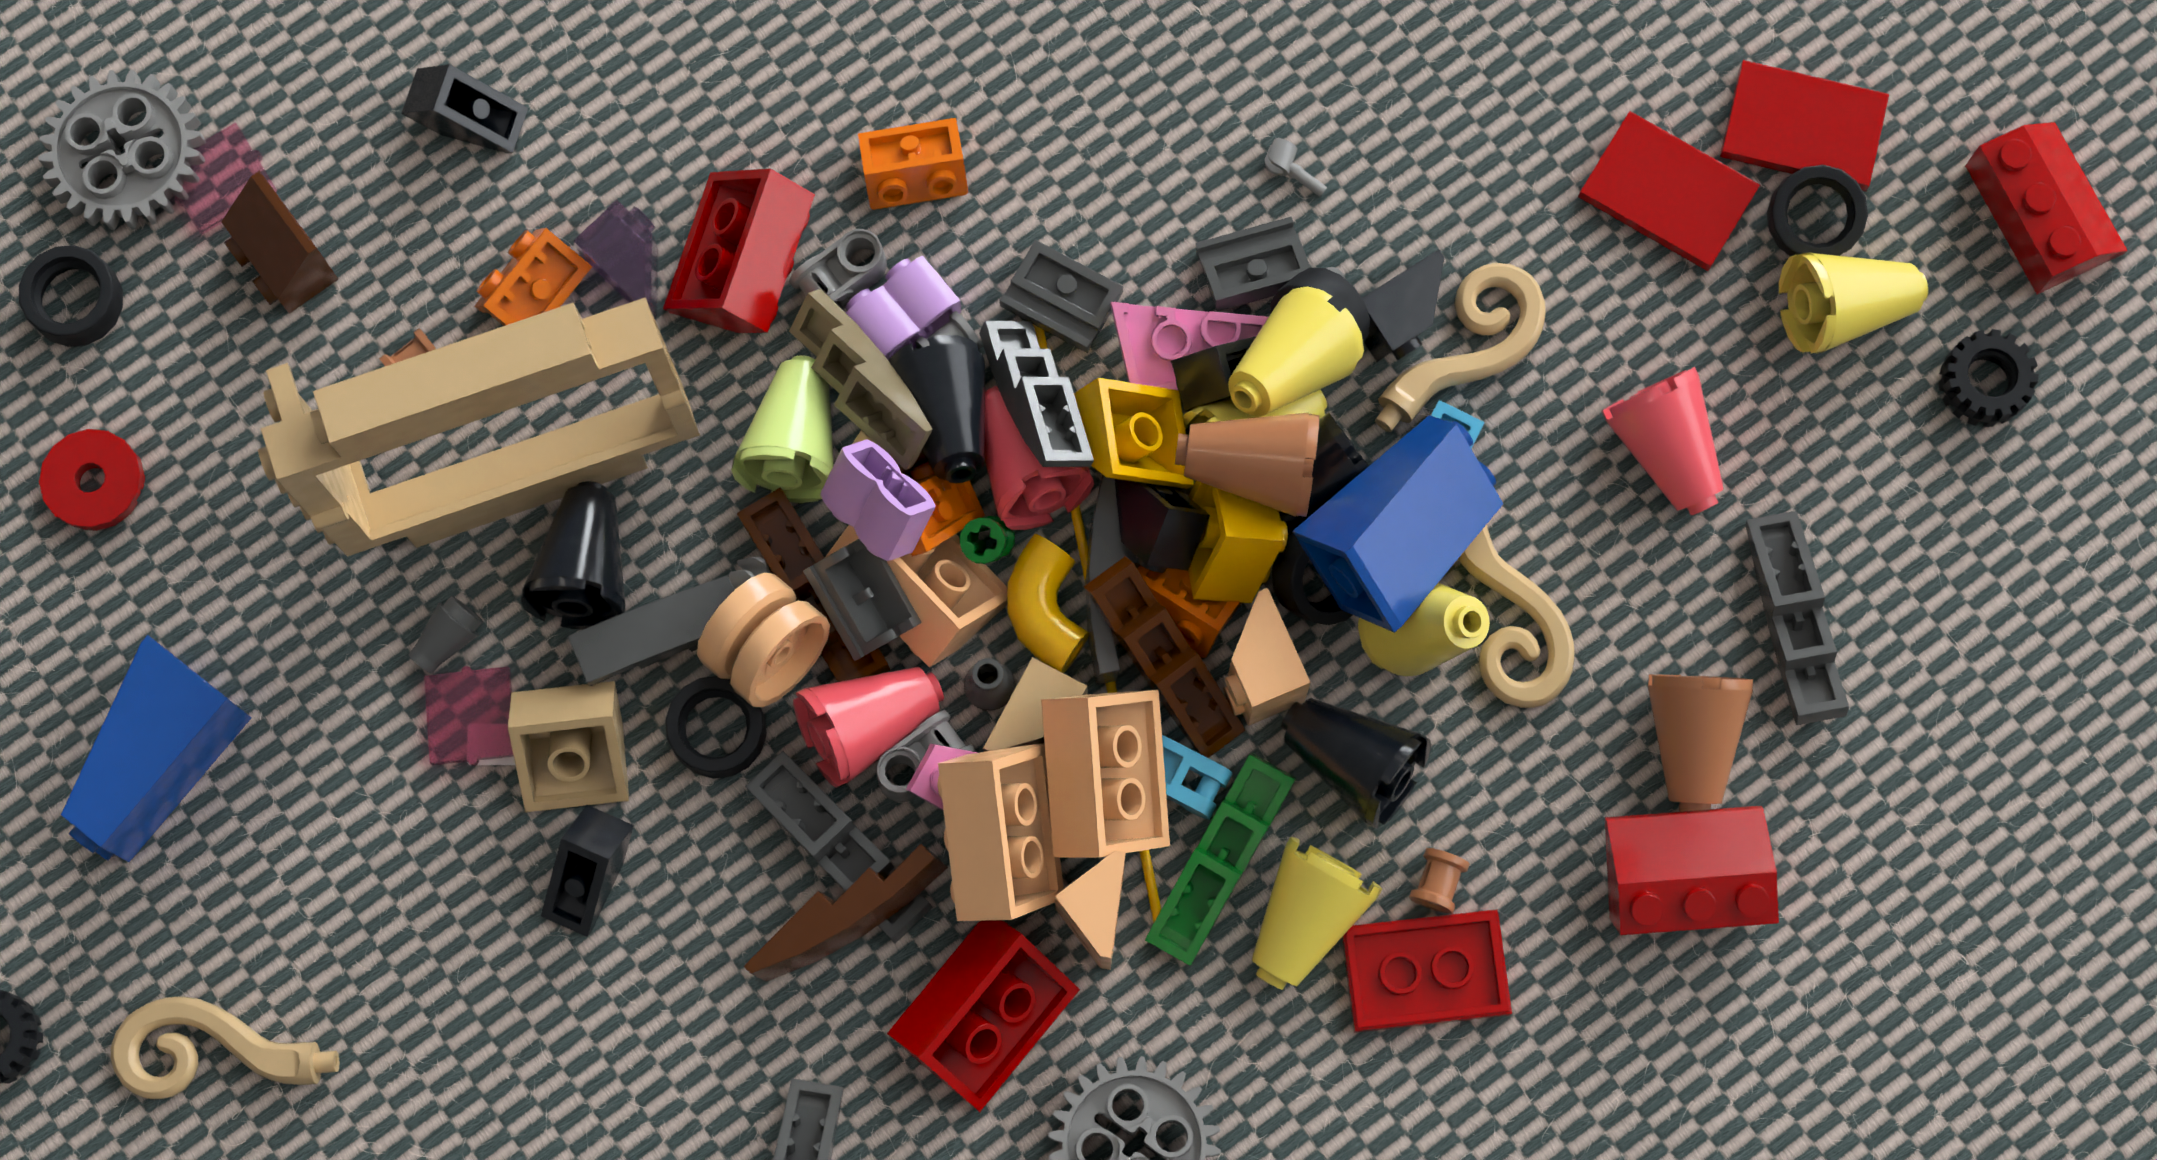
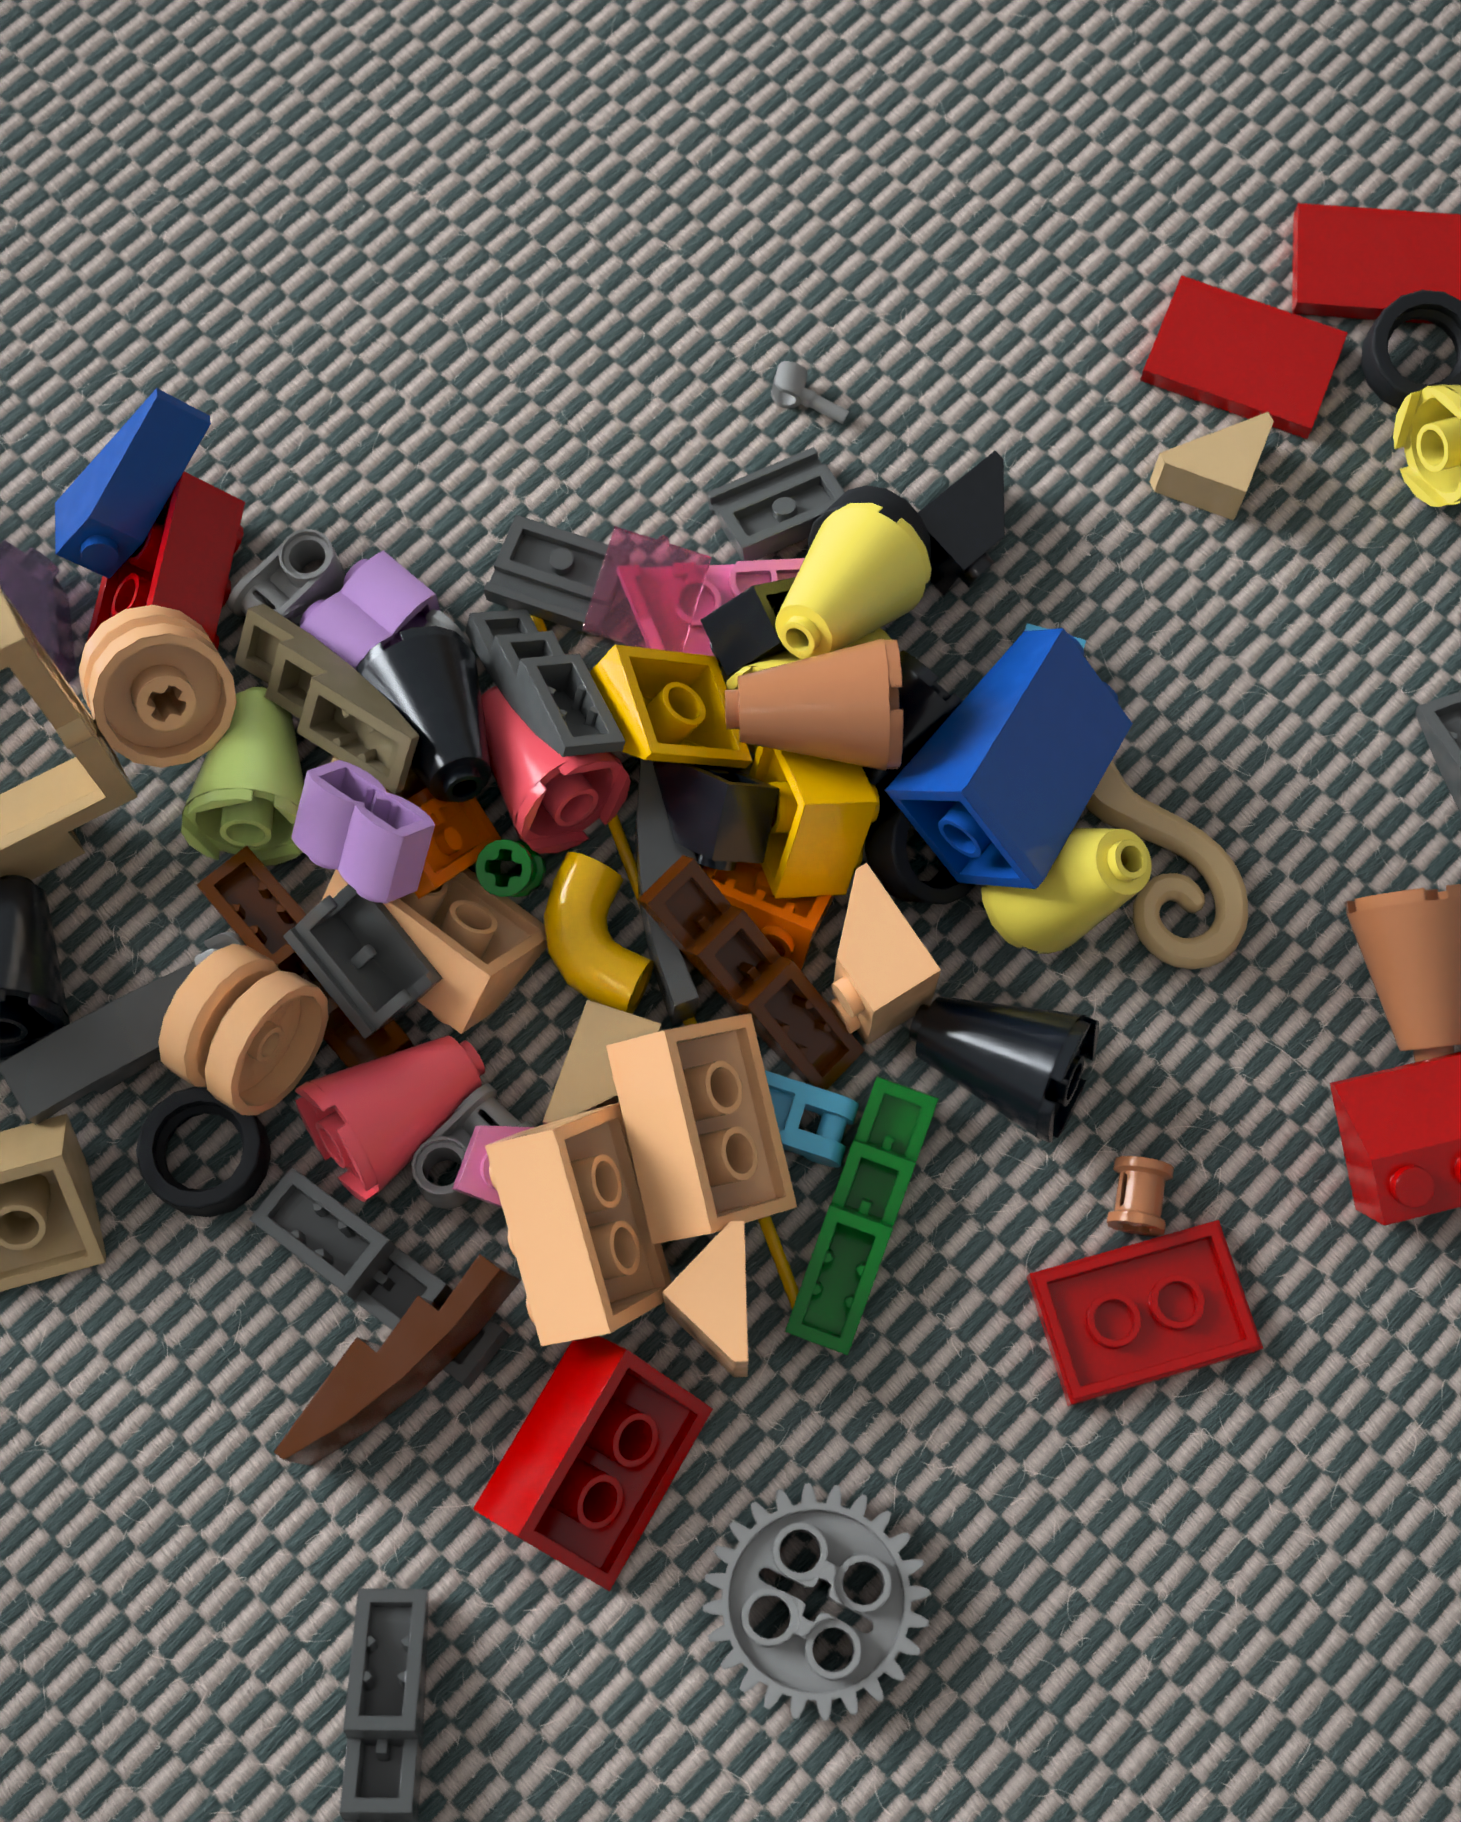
camera: 10 degrees left, 5 degrees down
(586, 869) = (57, 1358): black slope -> none
(721, 173) = (127, 484): none -> blue slope
(728, 350) = (157, 686): none -> light nougat wheel
(913, 163) = (359, 455): orange bracket -> none
(992, 695) = (543, 1055): dark grey cone -> none
(1132, 328) = (646, 592): none -> clear pink piece
(1307, 913) = (985, 1264): light yellow cone -> none
(1415, 386) = (1000, 608): tan plant -> none
(1622, 289) = (1214, 468): none -> tan slope
(1671, 439) = (1312, 624): coral cone -> none

